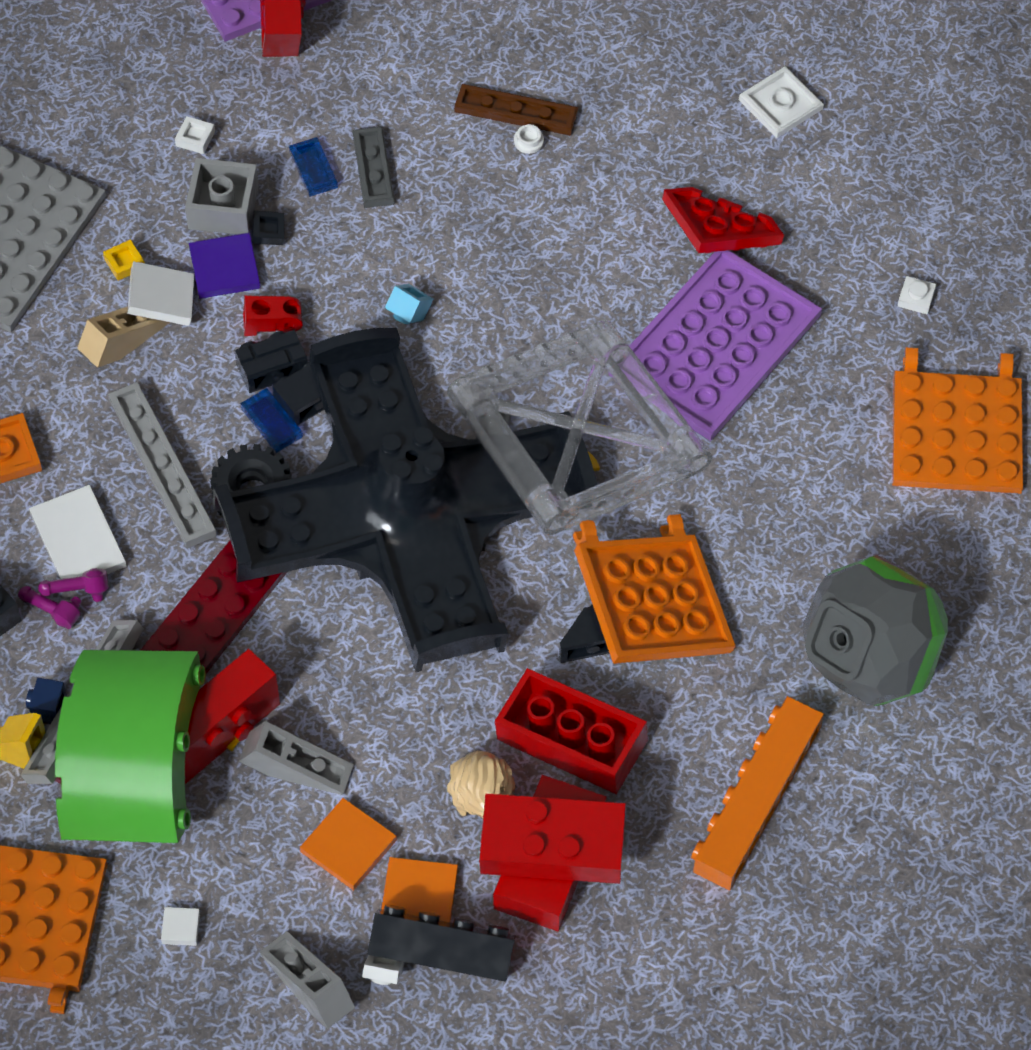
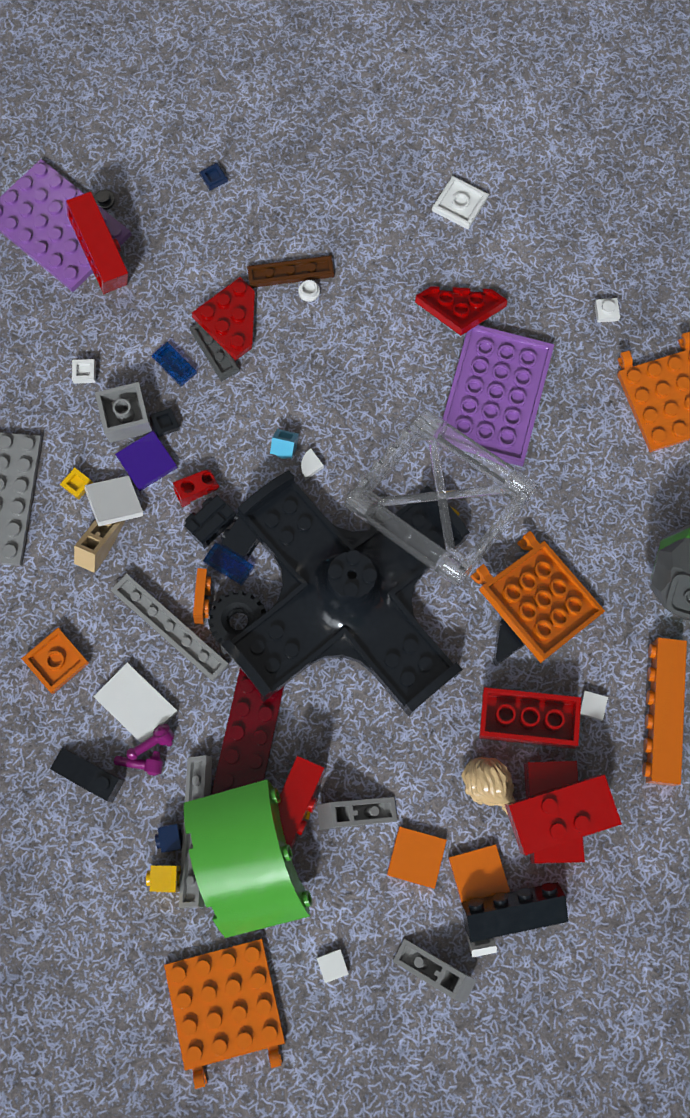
camera: 20 degrees left, 15 degrees up
(217, 435) = (201, 604): none -> orange plate
(410, 135) = (229, 318): none -> red plate
(432, 342) = (310, 464): none -> white tile
(666, 754) = (593, 705): none -> white tile

